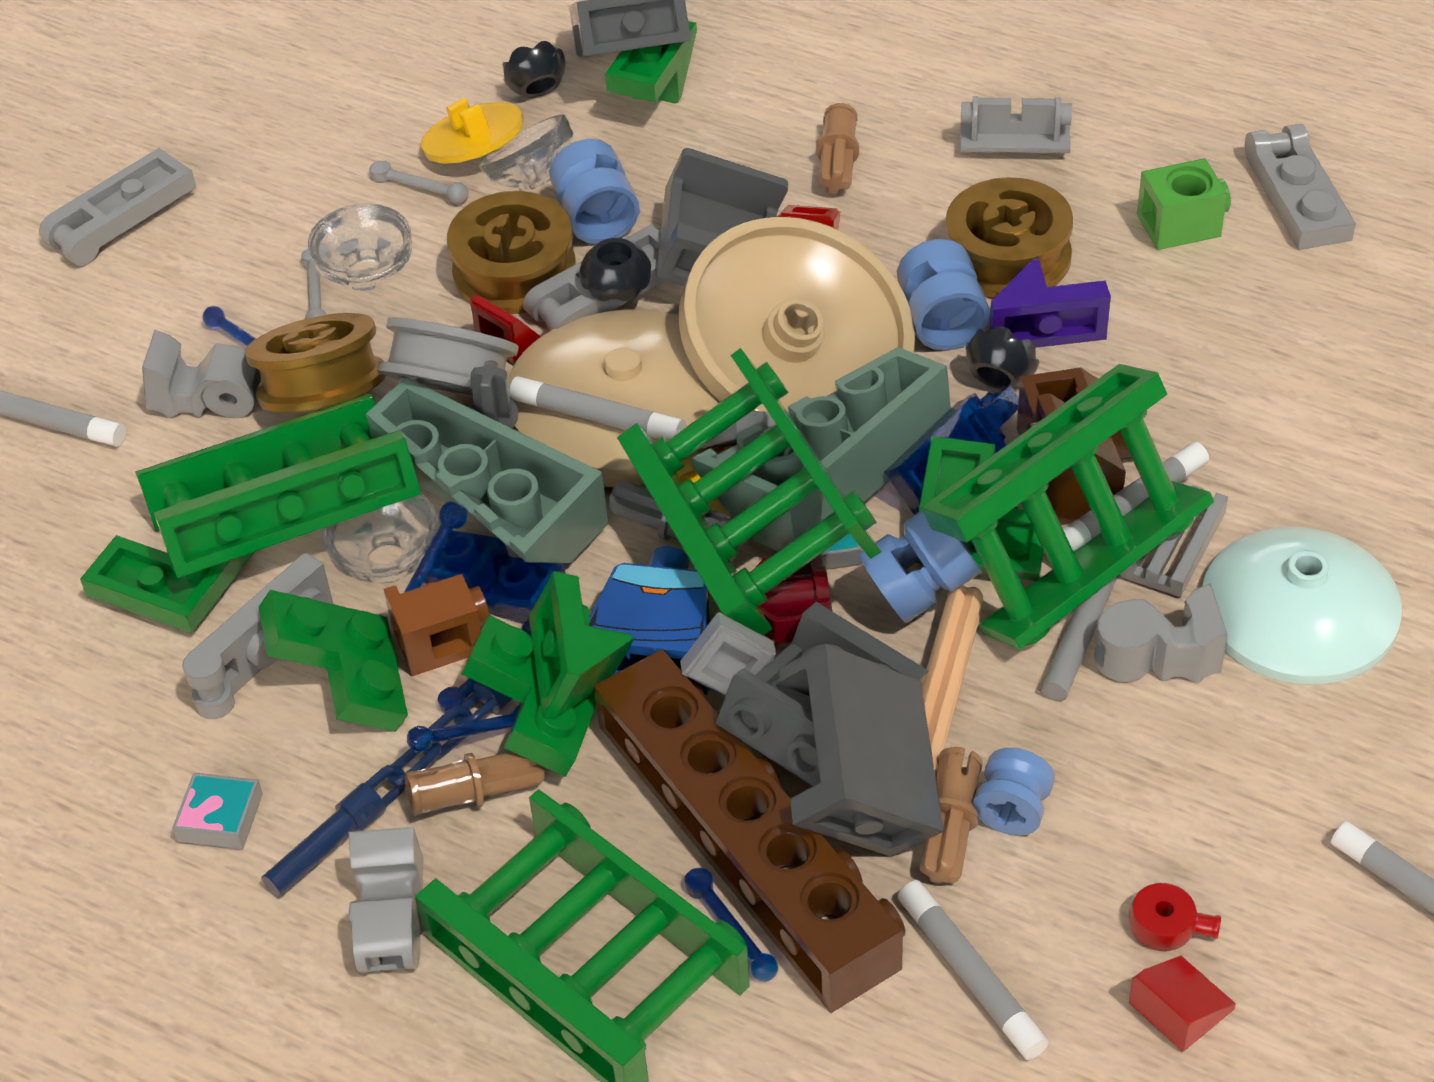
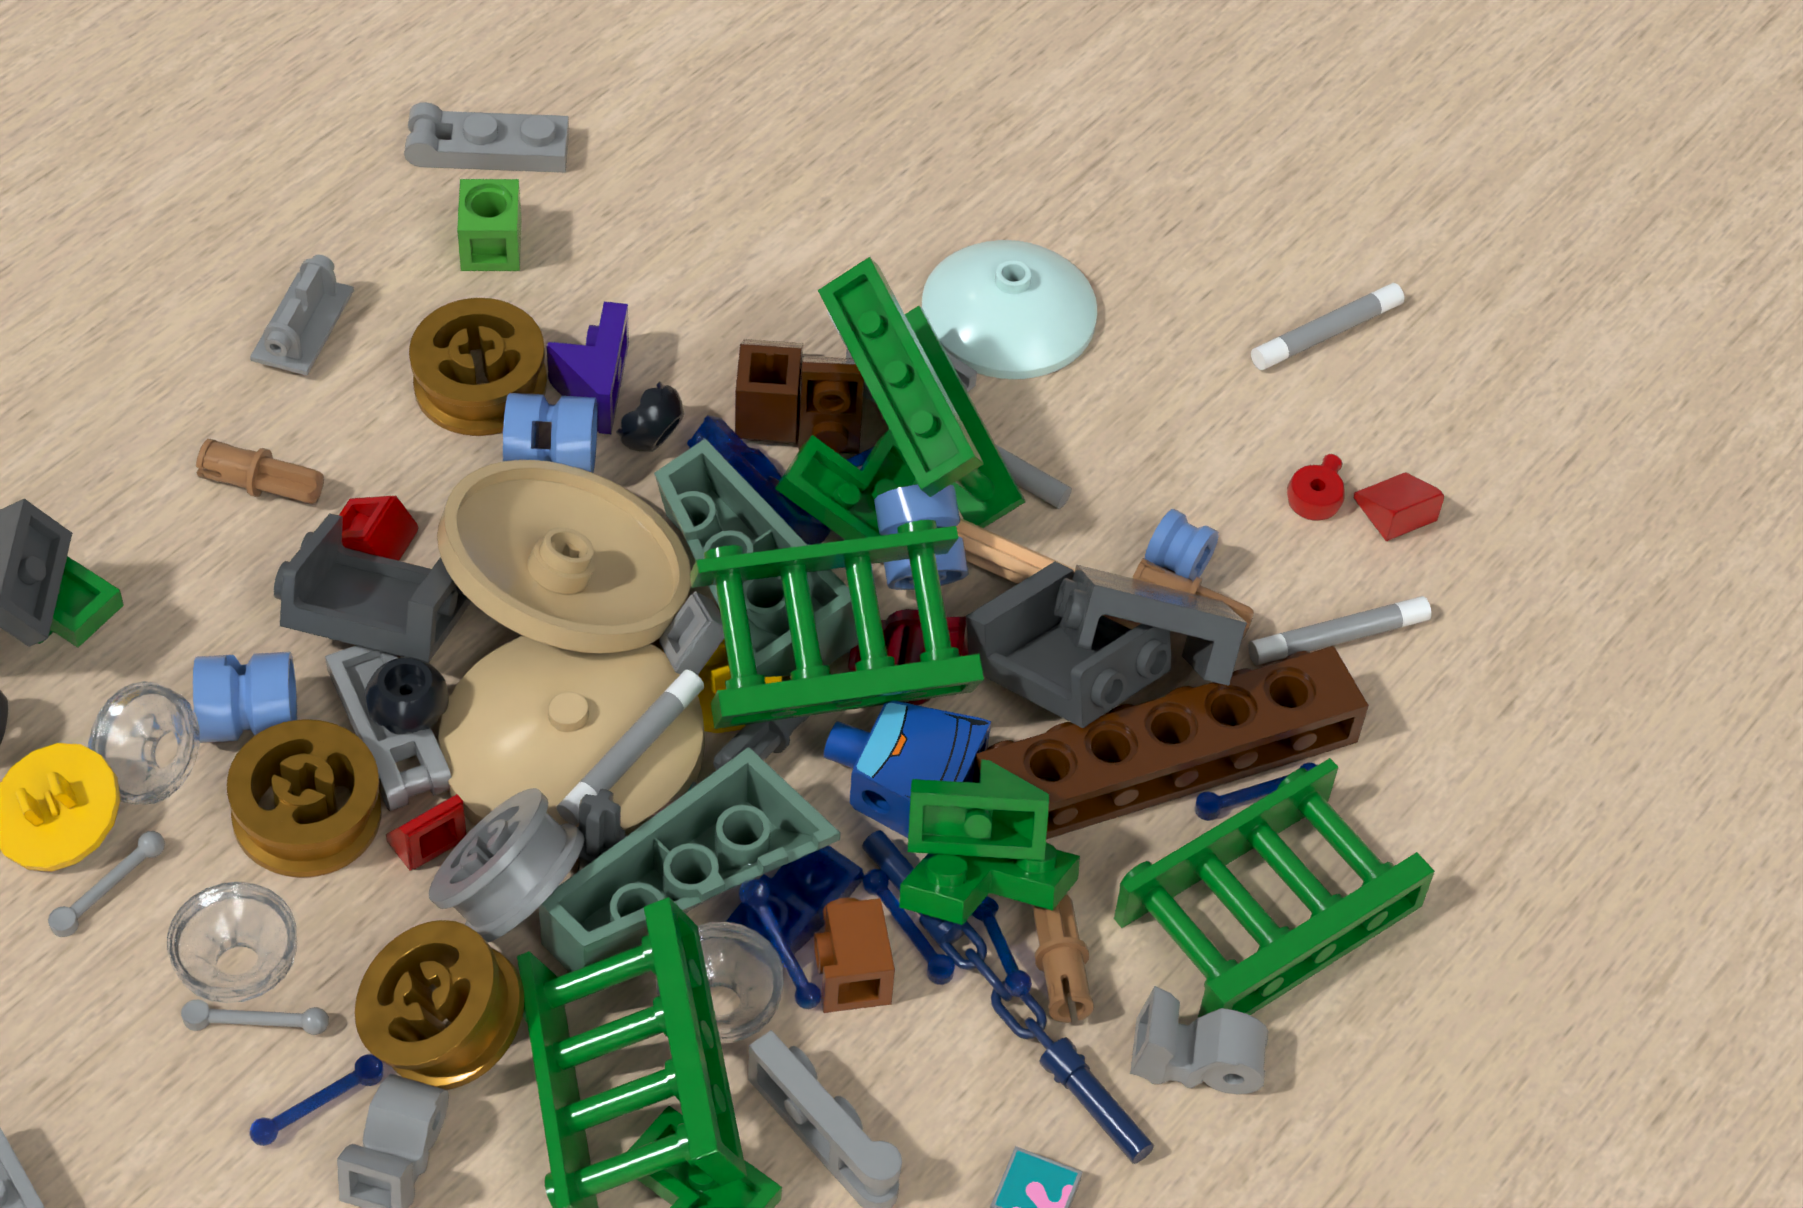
camera: 85 degrees left, 5 degrees up
(346, 642) = (870, 1038): green plate -> none
(724, 651) = (1006, 702): light grey tile -> none
(1140, 639) = (1041, 392): light grey leg -> none

